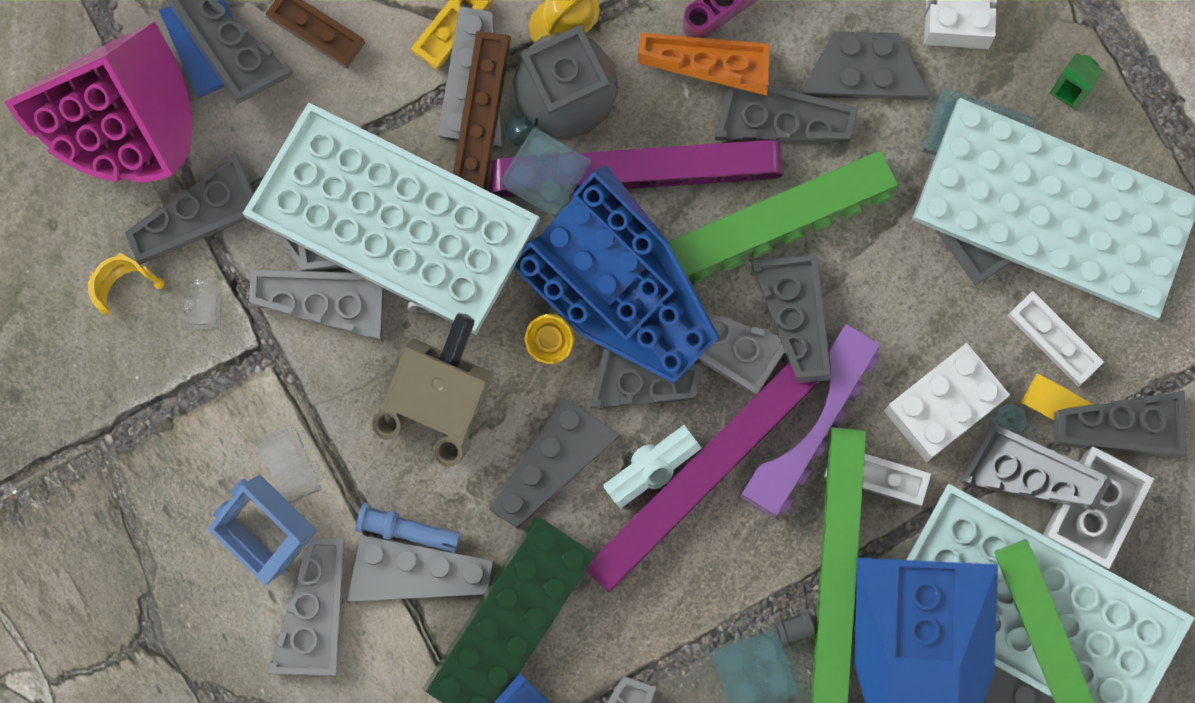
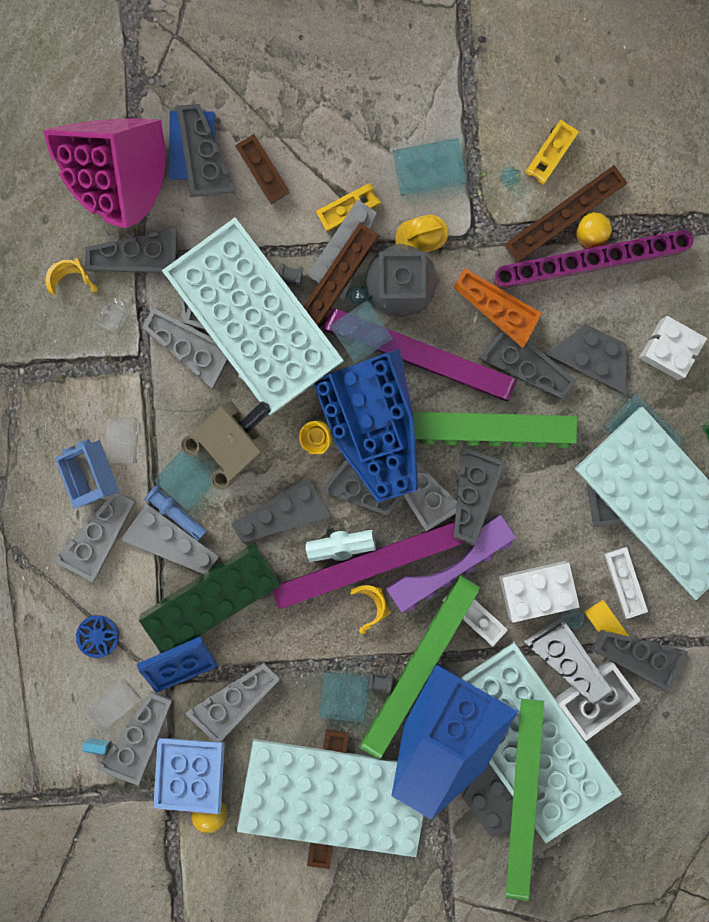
camera: 25 degrees right, 10 degrees up
(399, 478) = (185, 479): none -> clear light blue plate
(417, 144) = (291, 275): none -> dark grey bush
(737, 515) = (378, 597): none -> yellow helmet

